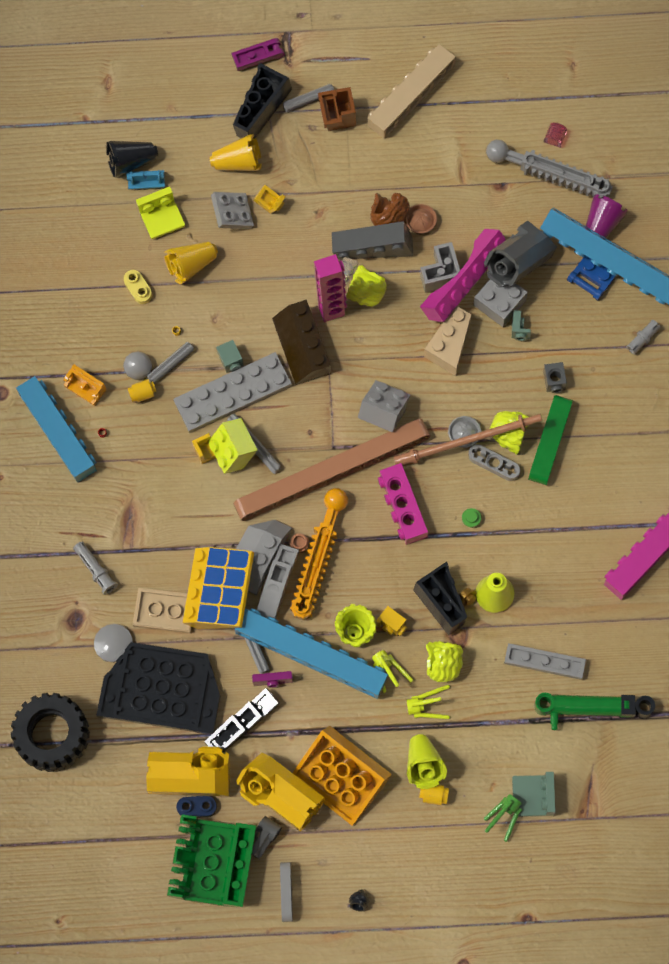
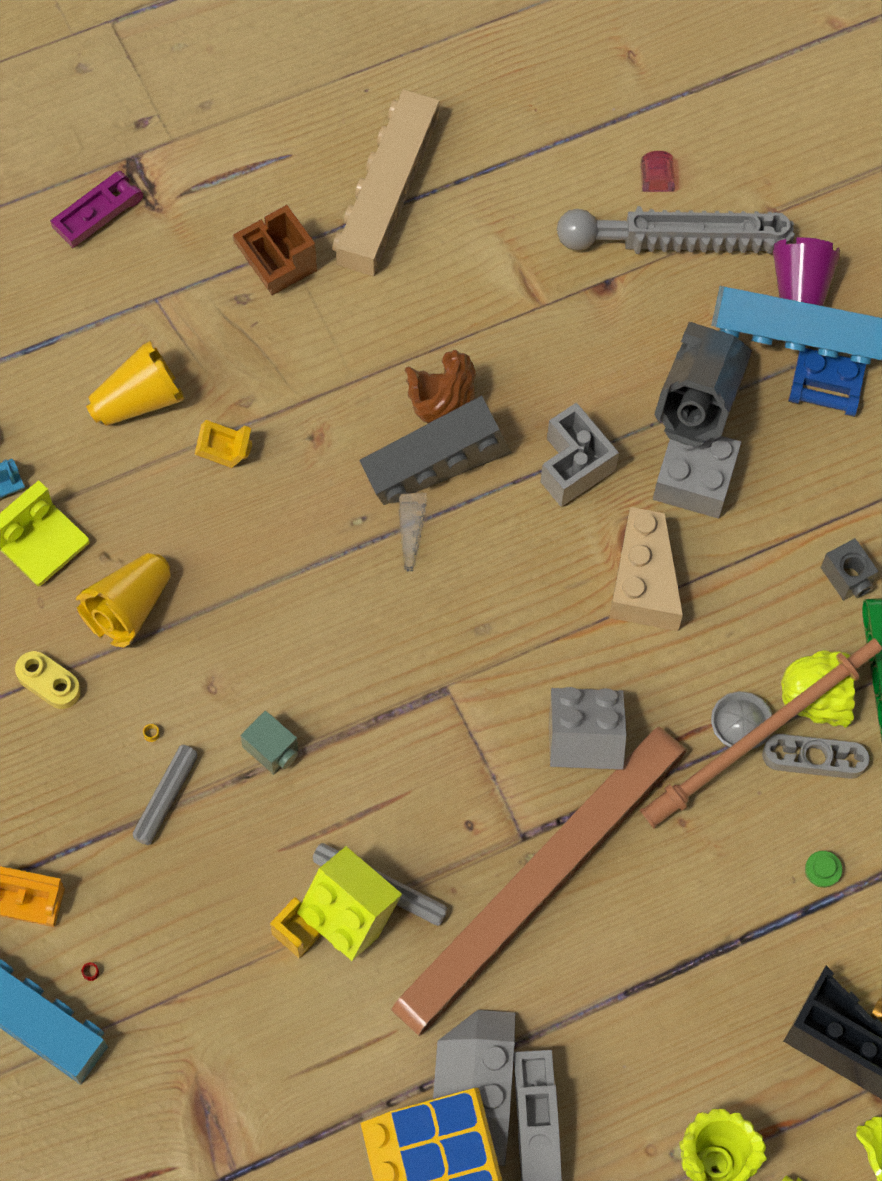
camera: 30 degrees left, 5 degrees down
(137, 365) = (106, 822): light grey hair -> none
(142, 390) = (134, 865): yellow brick -> none
(232, 210) = (165, 484): light grey plate -> none
(232, 392) = (299, 807): light grey plate -> none
(261, 101) = (139, 281): black wedge -> none
(299, 542) = (541, 1034): nougat plate -> none
(301, 343) = (388, 671): dark brown slope -> none
(306, 98) = (211, 254): light grey axle -> none
(330, 287) = (413, 550): dark pink brick -> none
(335, 501) = (575, 932): light orange gear -> none
(366, 287) = (460, 533): neon yellow hair -> none
(392, 622) = (777, 1116): yellow brick -> none
(396, 475) = (666, 844): dark pink brick -> none
(421, 218) = (501, 384): nougat hat -> none
(445, 299) = (609, 506): dark pink arch -> none
(517, 327) = (746, 509): sand green bracket -> none

